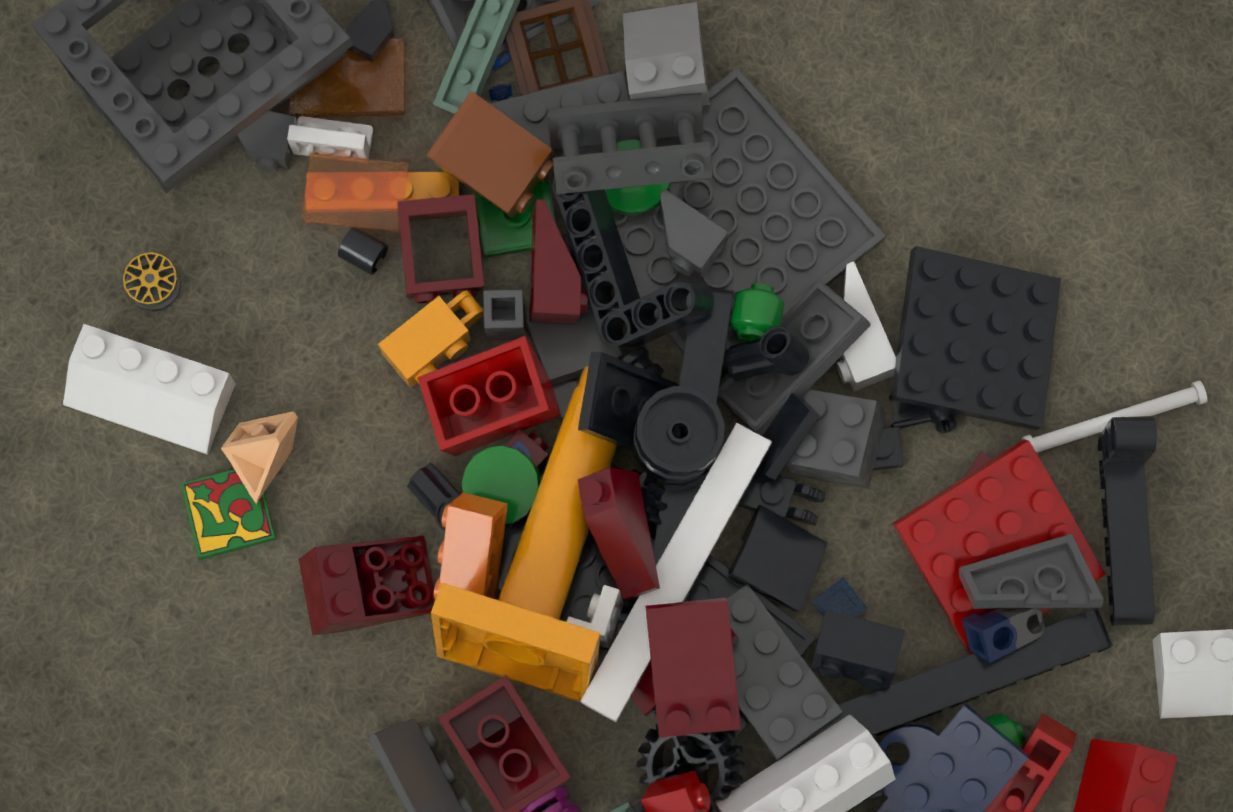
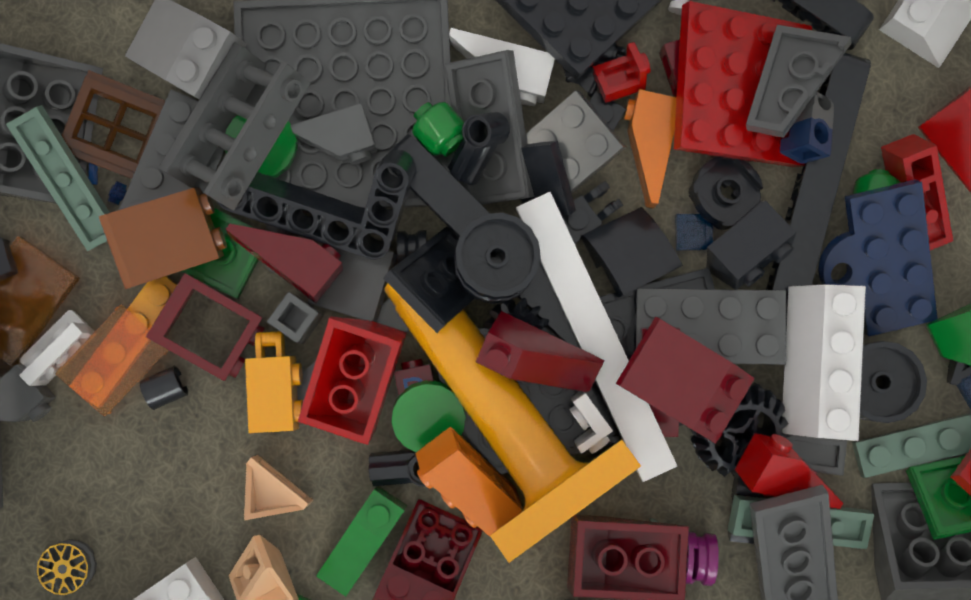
camera: 60 degrees left, 10 degrees up
(338, 401) = (270, 492): none -> light nougat slope
(353, 510) = (361, 540): none -> green slope
(896, 496) = (651, 136): none -> orange slope
(912, 592) = (707, 195): none -> black plate
(926, 437) = (622, 75): none -> red bracket

